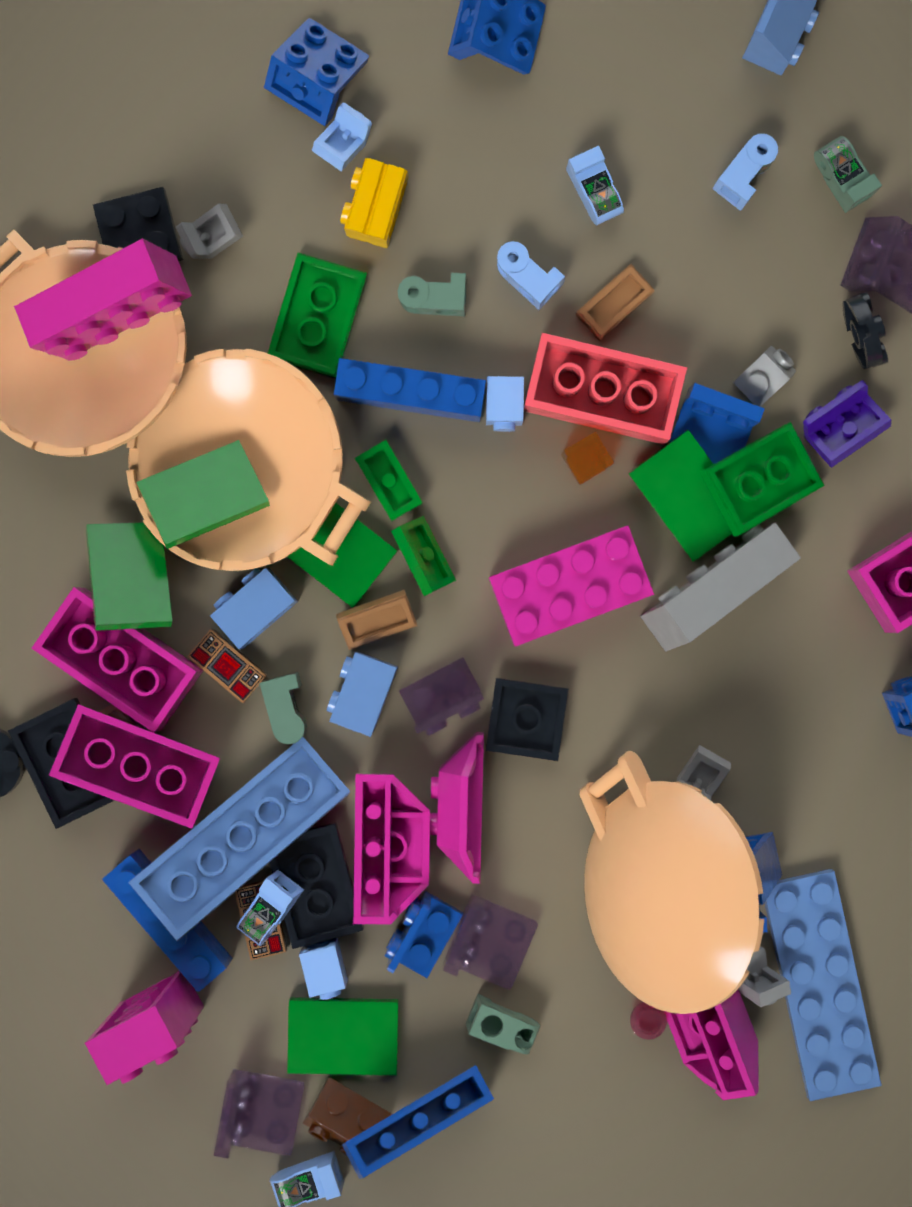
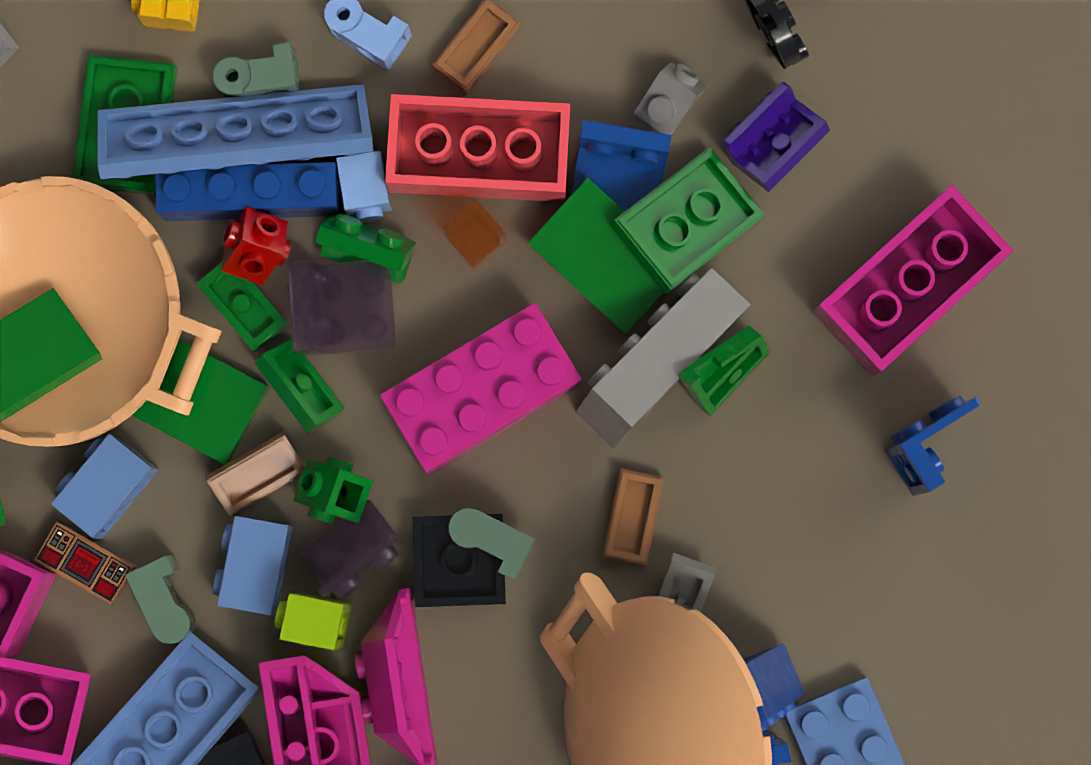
camera: 10 degrees left, 5 degrees down
(403, 748) = (313, 620): none -> lime brick
(408, 339) = (233, 131): none -> medium blue plate
(408, 436) = (254, 245): none -> red brick
(436, 646) = (332, 490): none -> green brick
(470, 498) = (340, 307): none -> clear purple bracket
(497, 453) = (350, 240): none -> green bracket
(548, 700) = (476, 529): none -> sand green leg
(671, 709) = (633, 517): none -> medium nougat tile
(769, 605) = (724, 369): none -> green wing

